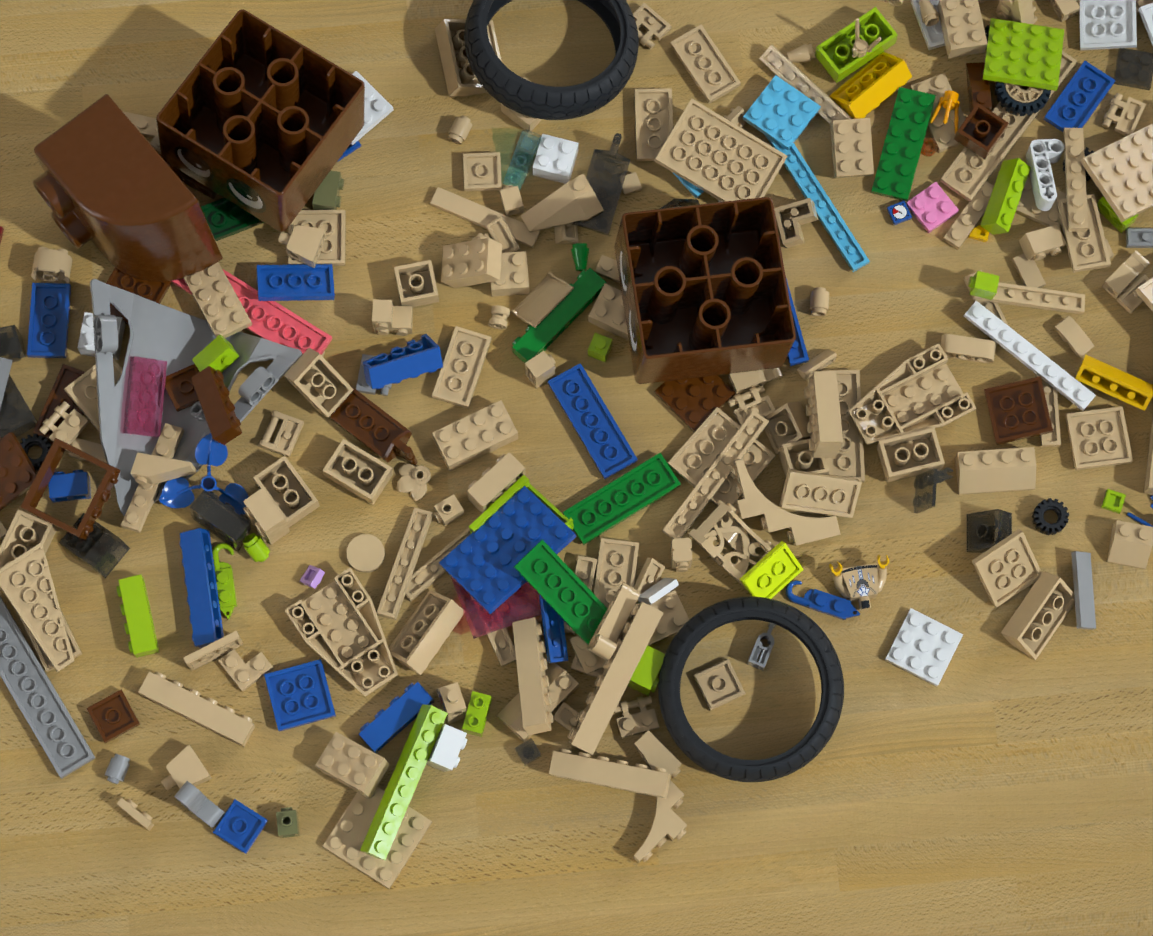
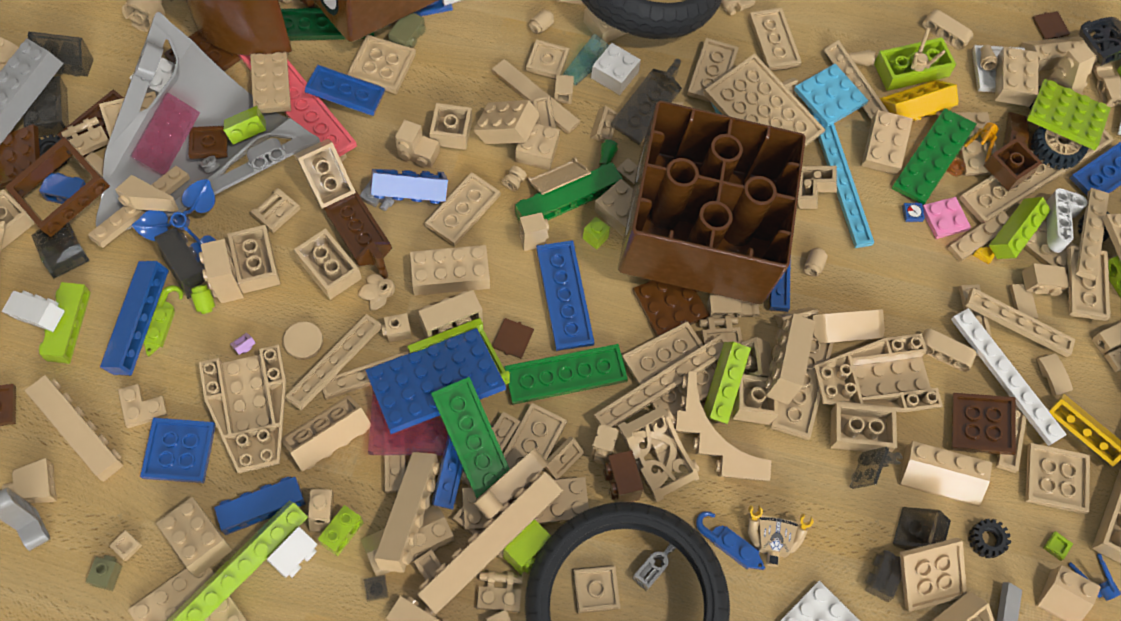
camera: 15 degrees right, 10 degrees down
(49, 320) = (119, 54): blue plate -> none
(108, 615) = (33, 310): none -> white brick
(213, 651) = (114, 377): tan tile -> none
(216, 405) = (221, 158): reddish brown brick -> none
(240, 826) = (57, 559): blue plate -> none
(294, 794) = (125, 545): none -> tan plate
(304, 243) = (367, 61): tan torso -> none
(559, 480) = (513, 338): none -> reddish brown piece
(567, 204) = (613, 103): tan wedge -> none
(658, 590) = (569, 472): white tile -> none
(709, 579) = (623, 477): none -> reddish brown brick
(772, 456) = (726, 382): none -> lime brick
(772, 572) = (689, 493): neon yellow tile -> none
(820, 493) = (762, 433): tan plate -> none
(870, 358) = (849, 326): none -> tan piece
(967, 584) = (885, 576): none -> clear smoke brick
(983, 285) = (982, 294): lime brick -> none

